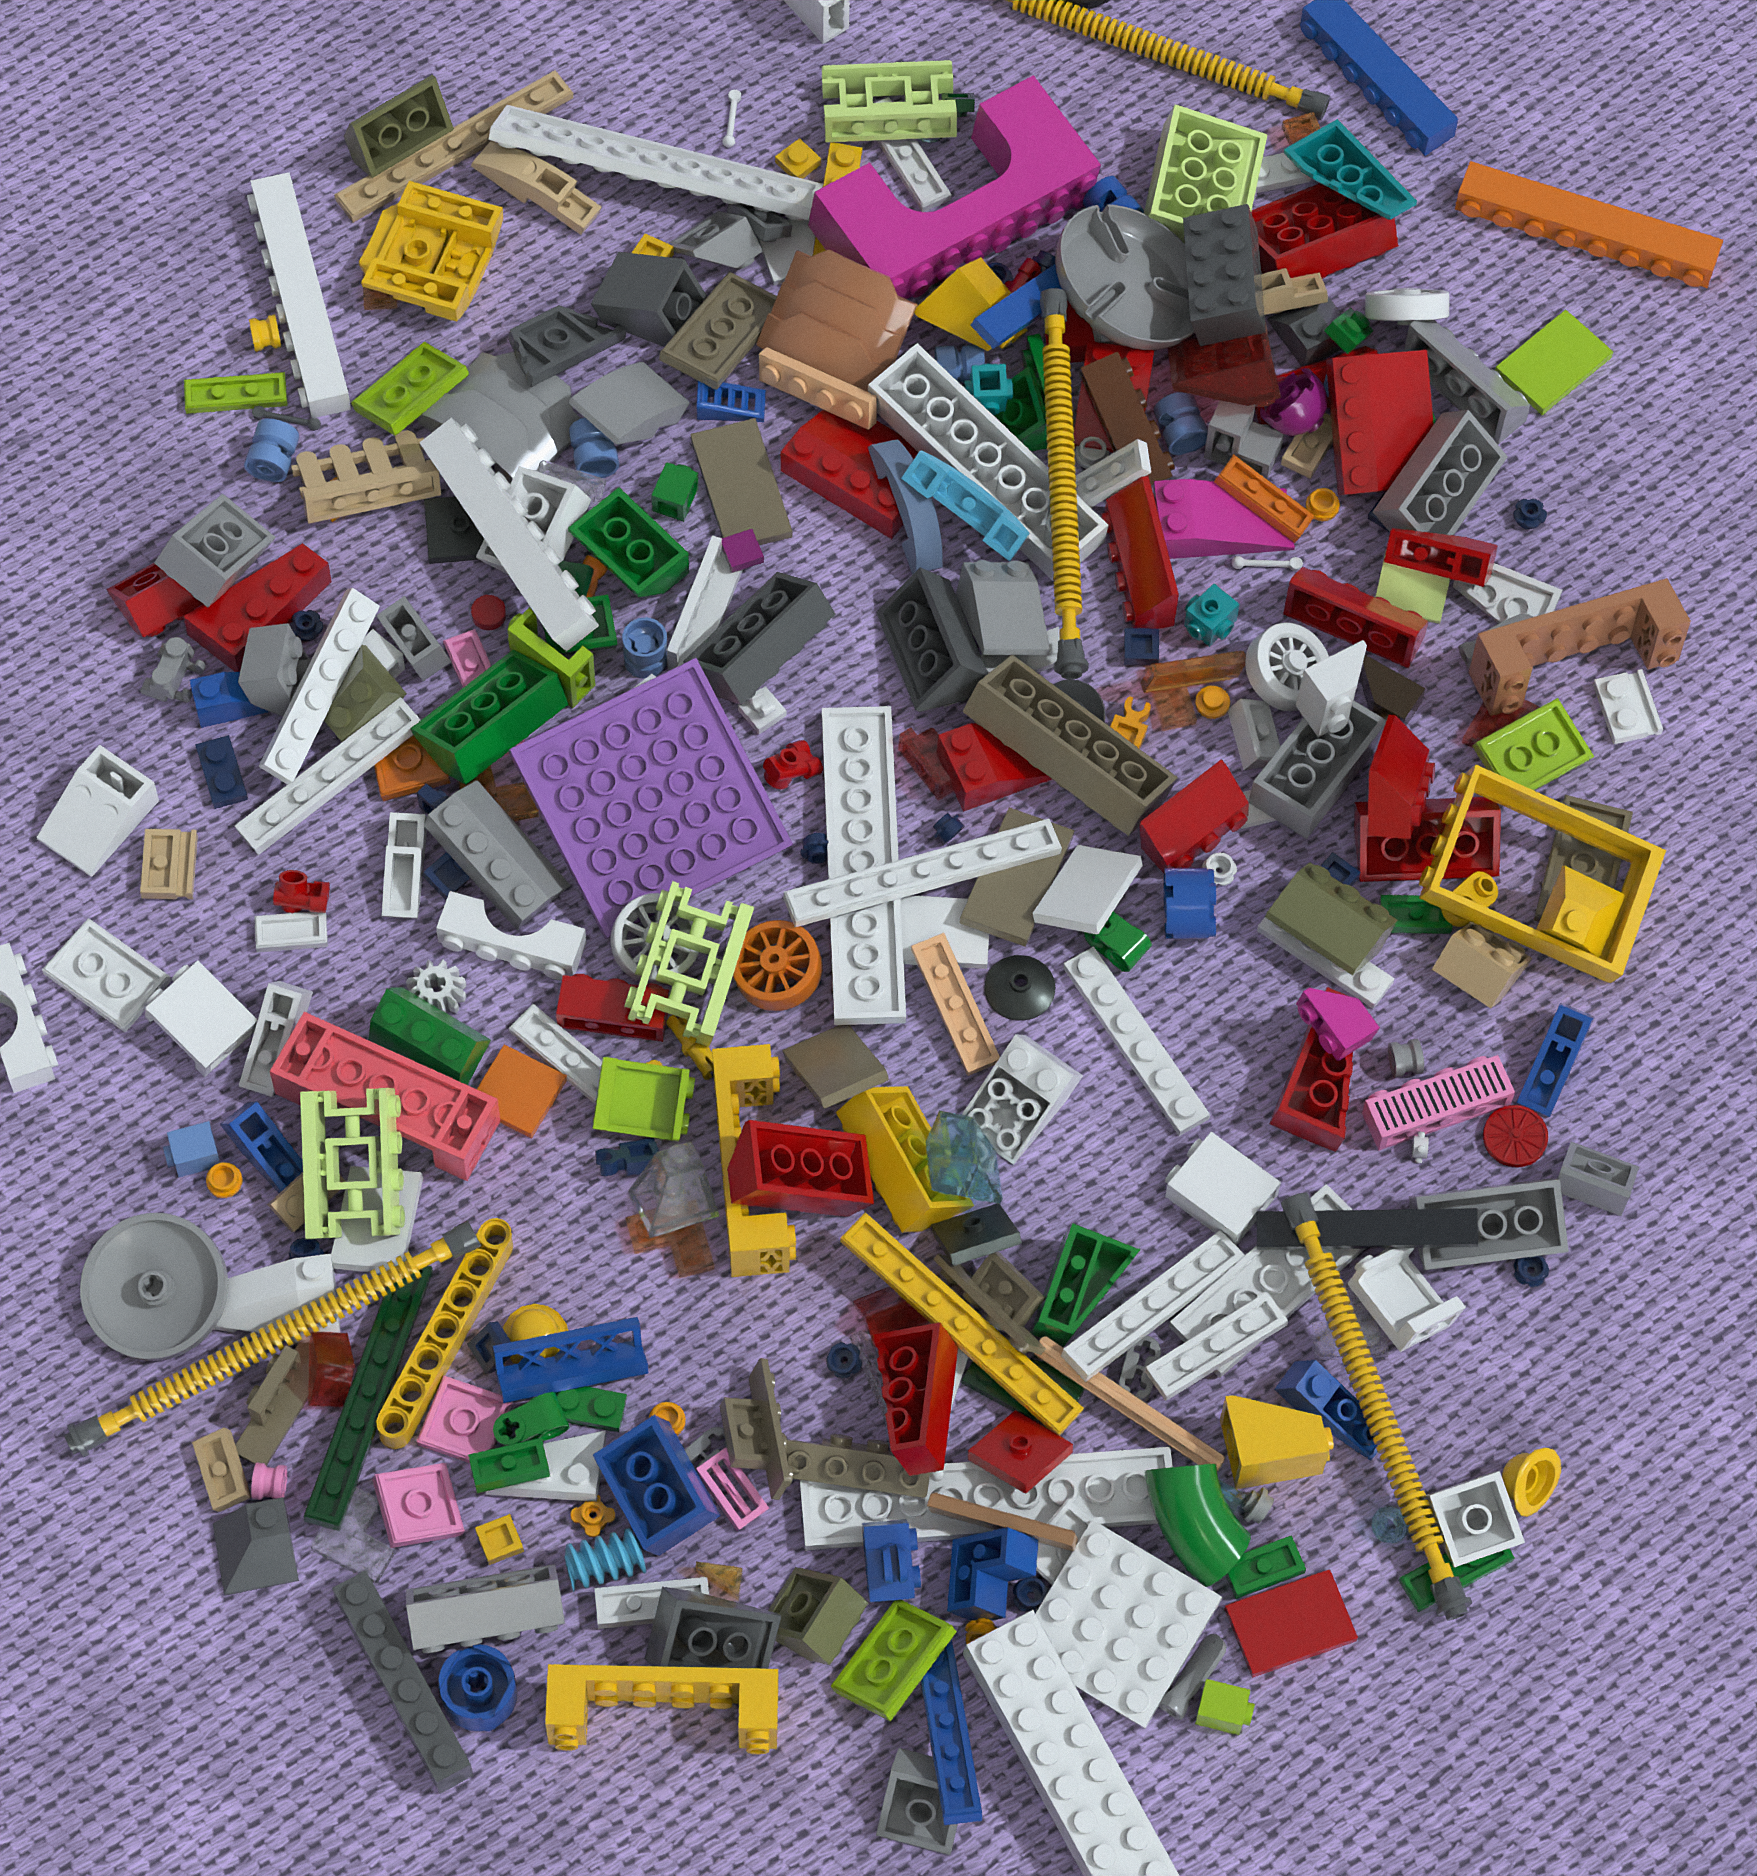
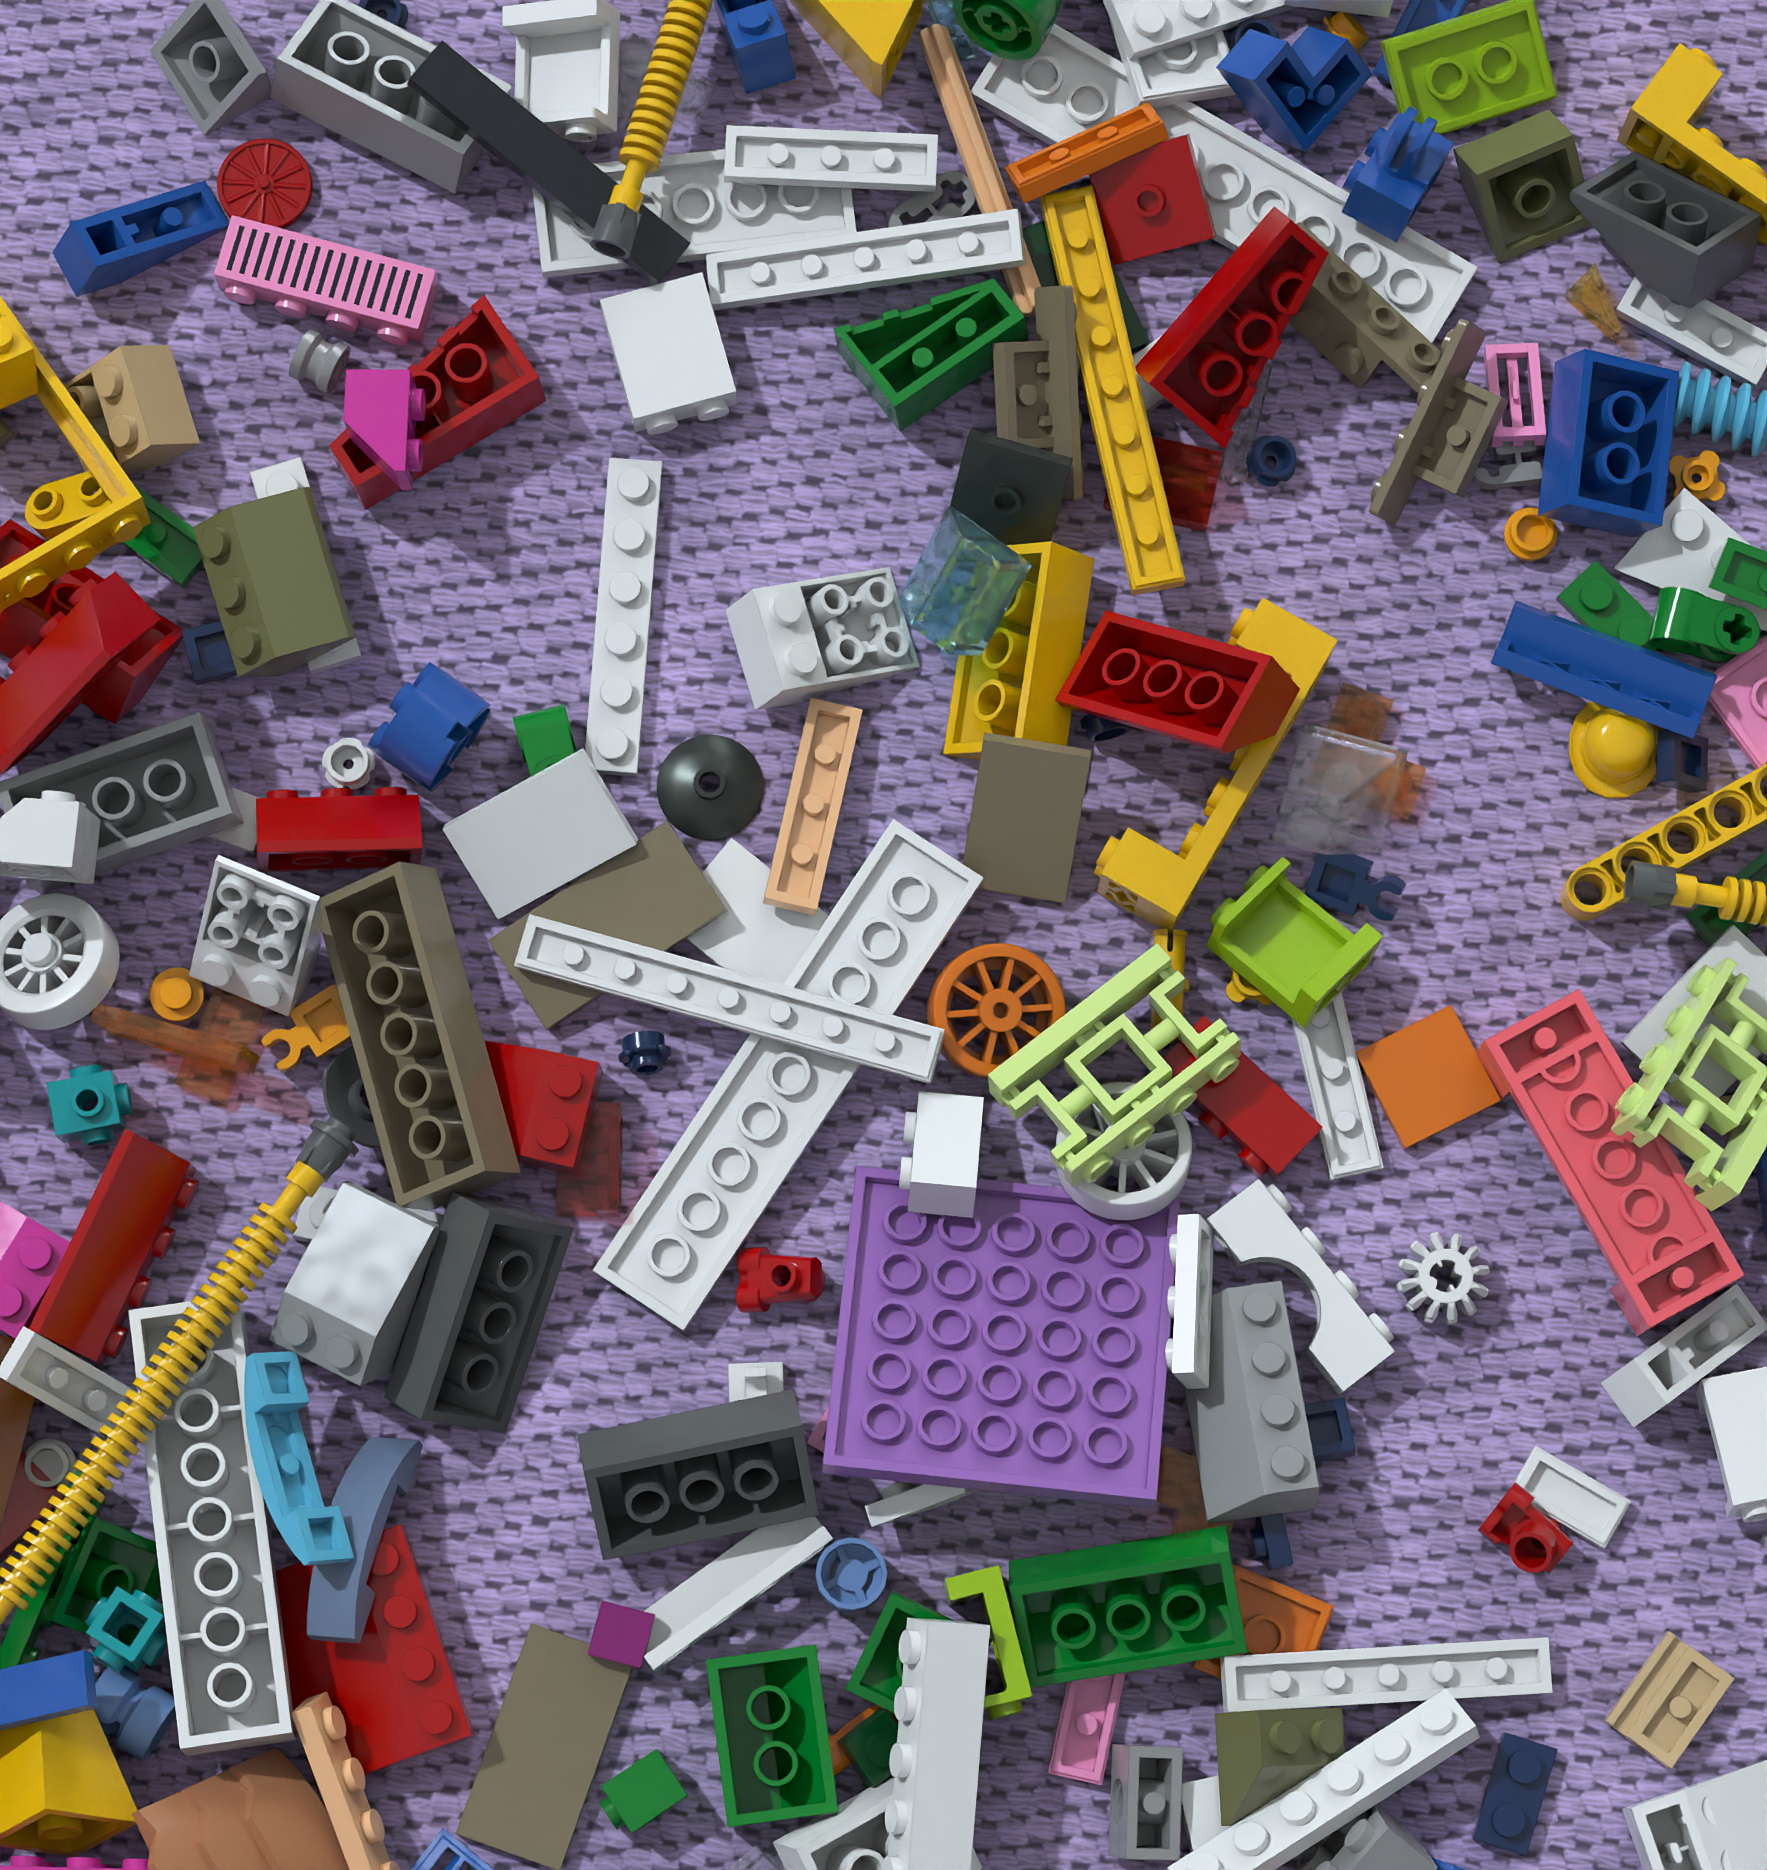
camera: 145 degrees left, 15 degrees up
(404, 865) = (1367, 1485): white slope -> none
(426, 1035) = (1501, 1205): green slope -> none
(488, 612) = (1011, 1788): red tile -> none
(562, 876) = (1191, 1301): none -> white plate
(750, 871) = (945, 1154): none -> white brick
(815, 848) = (831, 1141): dark blue plate -> none
(998, 1519) = (1240, 118): medium nougat tile -> none
(1075, 1446) = (1086, 152): none -> orange tile
(1141, 646) = (207, 1133): dark blue plate -> none
(1189, 735) = (257, 937): none -> white slope
(1253, 732) = (158, 914): white slope -> none
(1420, 1147) = (391, 244): white piece -> none

